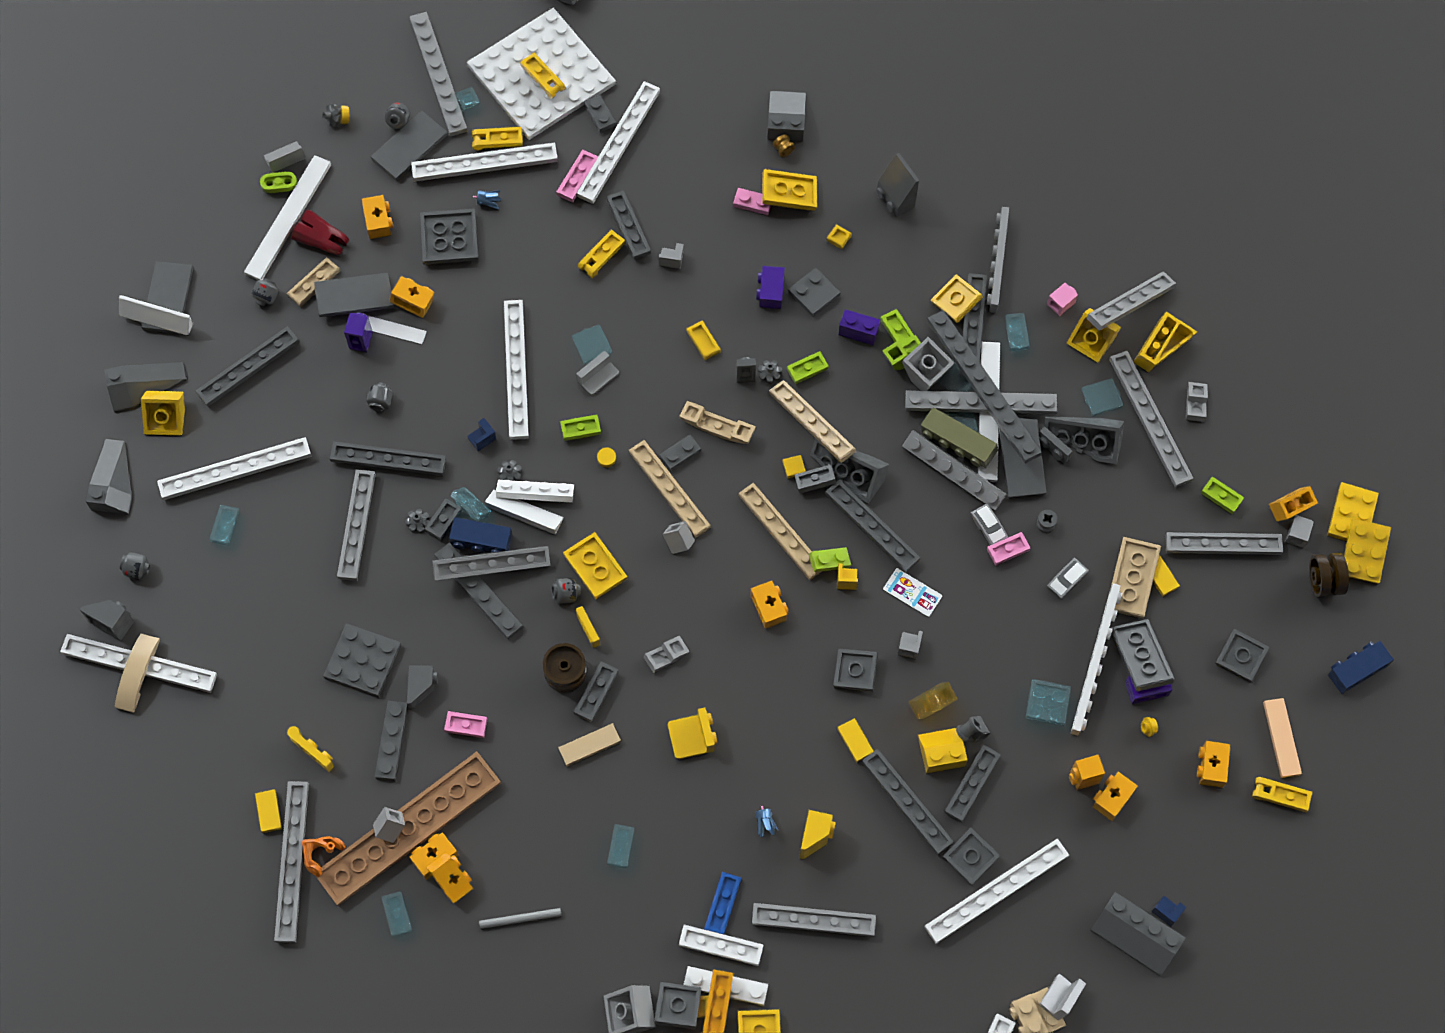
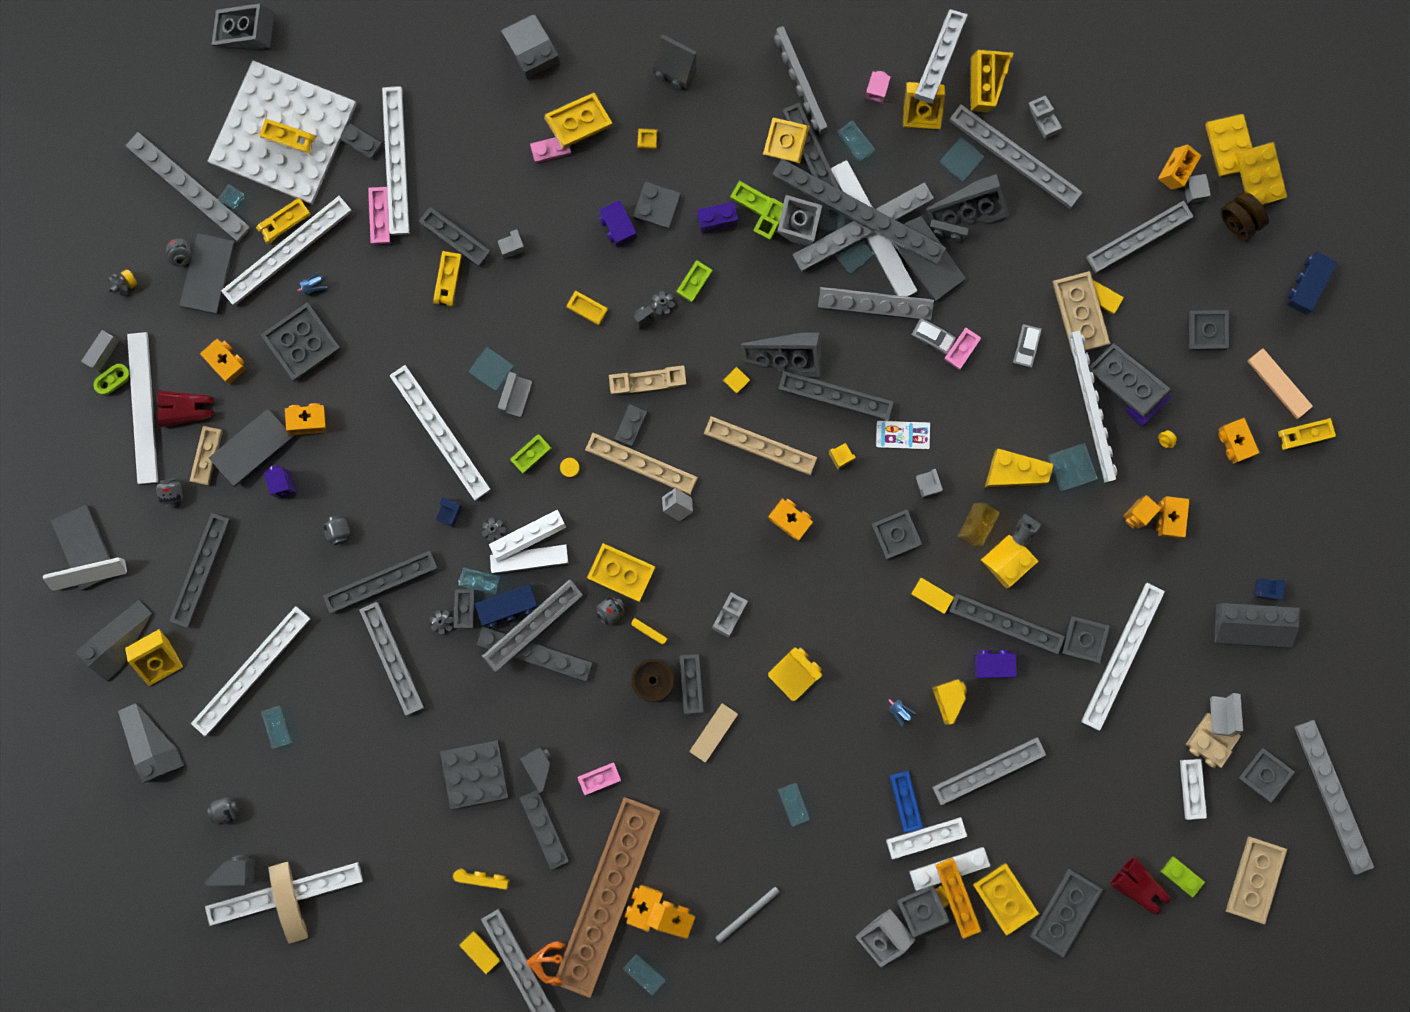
camera: 30 degrees left, 15 degrees up
(388, 824) = (591, 906): light grey panel -> none
(397, 330) = (306, 457): white sticker -> none
(784, 145) = (546, 78): pearl gold wheel -> none
(812, 421) = (729, 331): tan tile -> none
(815, 479) = (762, 382): plate -> none
(829, 559) = (818, 448): lime plate -> none
(875, 830) = (995, 665): none -> dark purple brick
(959, 438) = (864, 272): olive brick -> none
(972, 783) = (1050, 575): dark grey plate -> none
(995, 675) = (1017, 470): none -> yellow wedge
(1046, 525) = (978, 307): dark grey wheel -> none
(1222, 495) = (1114, 193): lime plate -> none

